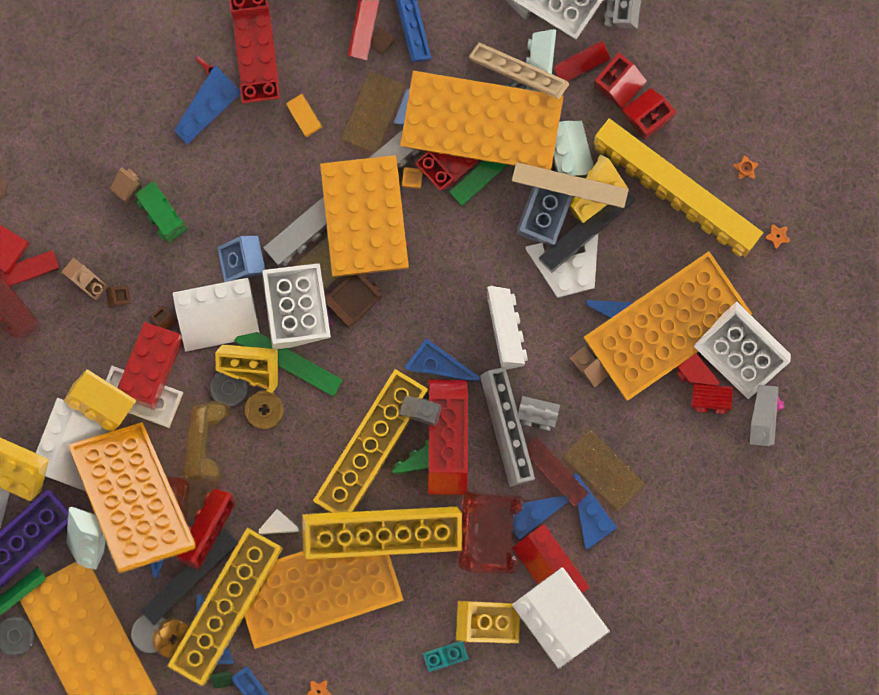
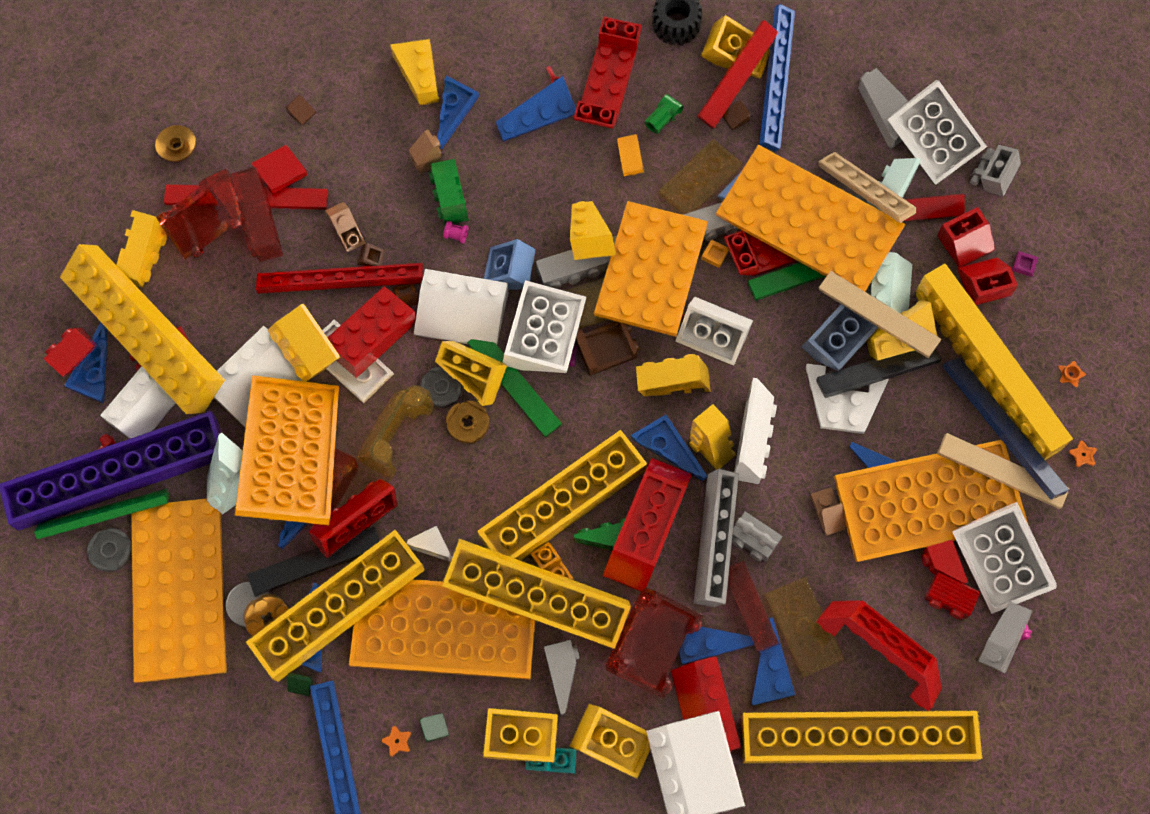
camera: 20 degrees right, 10 degrees down
(83, 106) = (417, 67): none -> yellow wedge
(100, 327) = (339, 278): none -> red tile
(131, 128) = (456, 104): none -> blue wing
(182, 246) = (455, 232): none -> dark pink bush
(299, 207) = (589, 232): none -> yellow wedge
(318, 63) = (665, 112): none -> green piece
(343, 669) = (434, 727): none -> slope
(381, 500) = (549, 560): none -> light orange slope
(414, 648) = (520, 735): none -> yellow slope
(419, 303) = (672, 376): none -> yellow wedge
(421, 410) = (631, 481): flat silver slope -> none
(425, 581) = (562, 667): none -> light grey slope
(437, 248) = (713, 330): none -> white slope
(472, 344) = (710, 437): none -> yellow wedge
(673, 457) = (890, 642): none -> red slope
(676, 83) = (1025, 263): none -> magenta tile
(678, 541) = (860, 737): none -> yellow brick
(706, 240) = (1005, 428): none -> dark blue tile
(717, 279) = (994, 468): none -> tan tile

